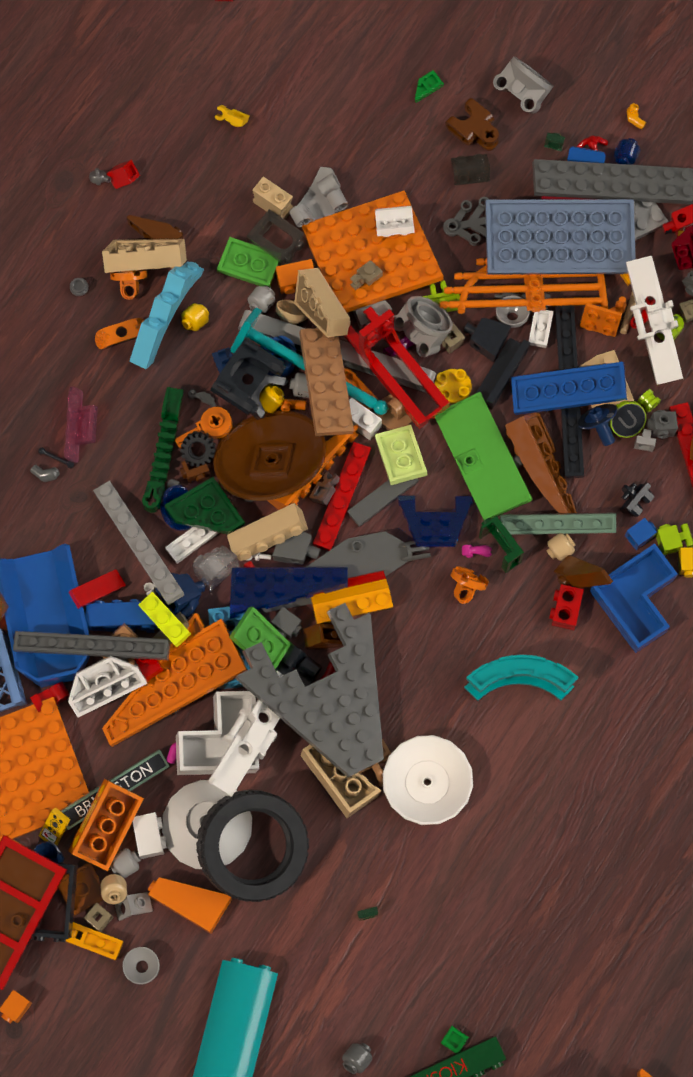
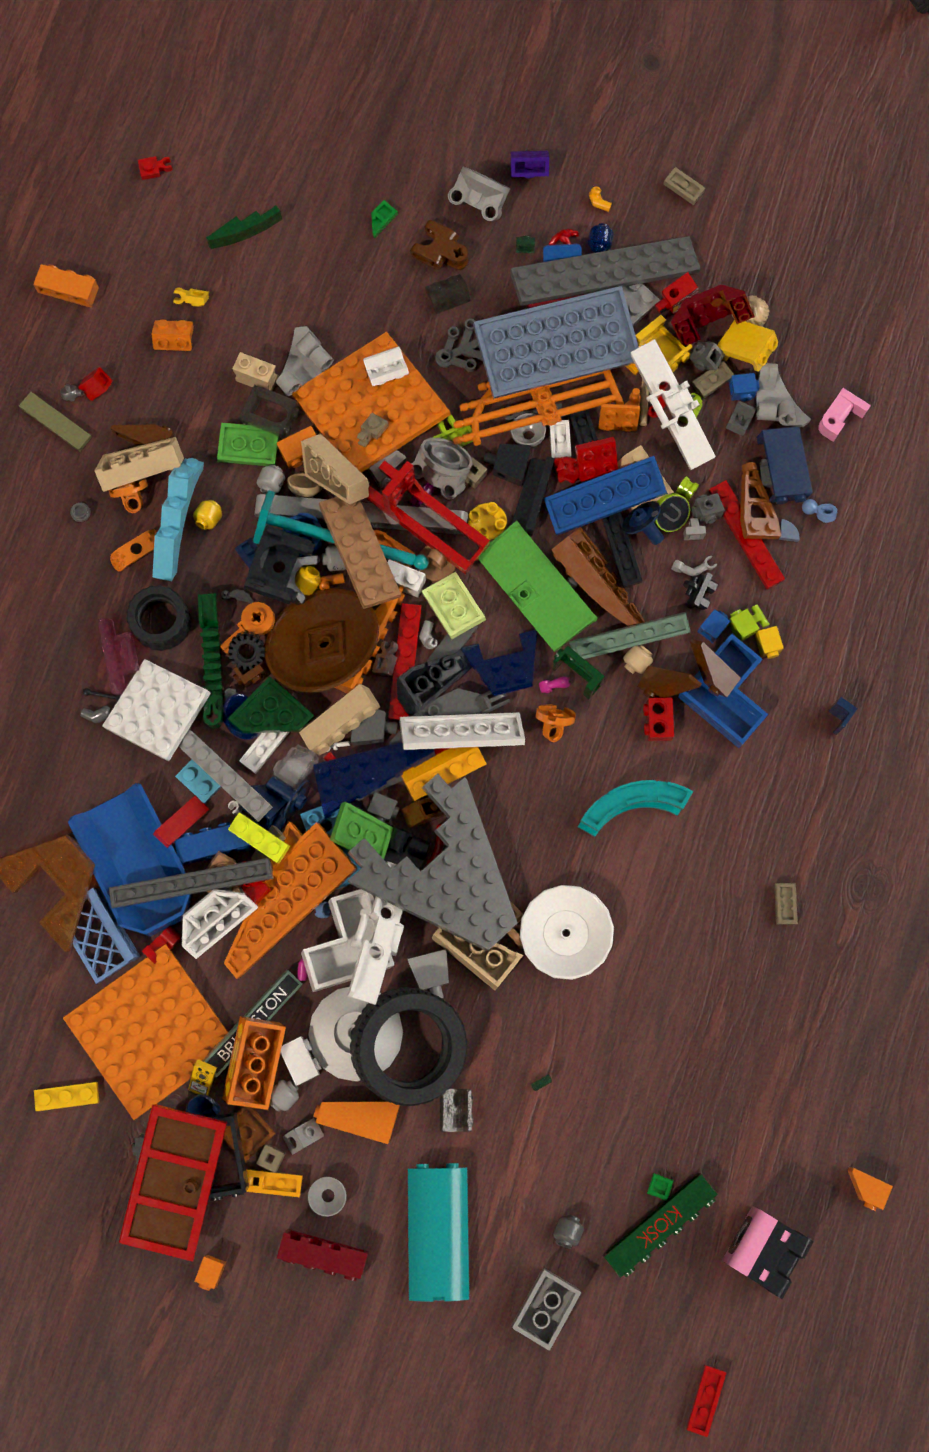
camera: 15 degrees left, 5 degrees up
(77, 199) = (55, 421): none -> olive tile
(101, 482) = (156, 710): none -> white plate
(113, 889) = (279, 1126): tan head -> none
(120, 79) = (66, 285): none -> orange brick
(122, 557) = (198, 781): none -> medium azure plate
(122, 1017) = (322, 1254): none -> dark red wedge
(125, 378) = (148, 597): none -> black tyre
(205, 147) = (172, 335): none -> orange bracket
(205, 703) = (323, 910): none -> medium blue hinge
(207, 592) = (295, 798): none -> dark blue piece
(281, 918) = (456, 1111): none -> clear smoke bracket
(290, 66) = (237, 230): none -> dark green slope
(292, 783) = (431, 971): none -> light grey torso
(357, 517) = (428, 680): none -> black wedge
(367, 477) = (426, 637): none -> light grey arm
(378, 570) = (461, 731): none -> white plate
(541, 355) = (566, 469): none -> red piece
(568, 351) = (596, 458): none -> red plate
(577, 68) = (529, 163): none -> dark purple brick
(622, 471) = (679, 566): none -> light grey arm
(628, 573) = (714, 670): none -> slope
(642, 808) = (785, 903): none -> dark tan plate
(665, 266) = (670, 347): none -> yellow panel

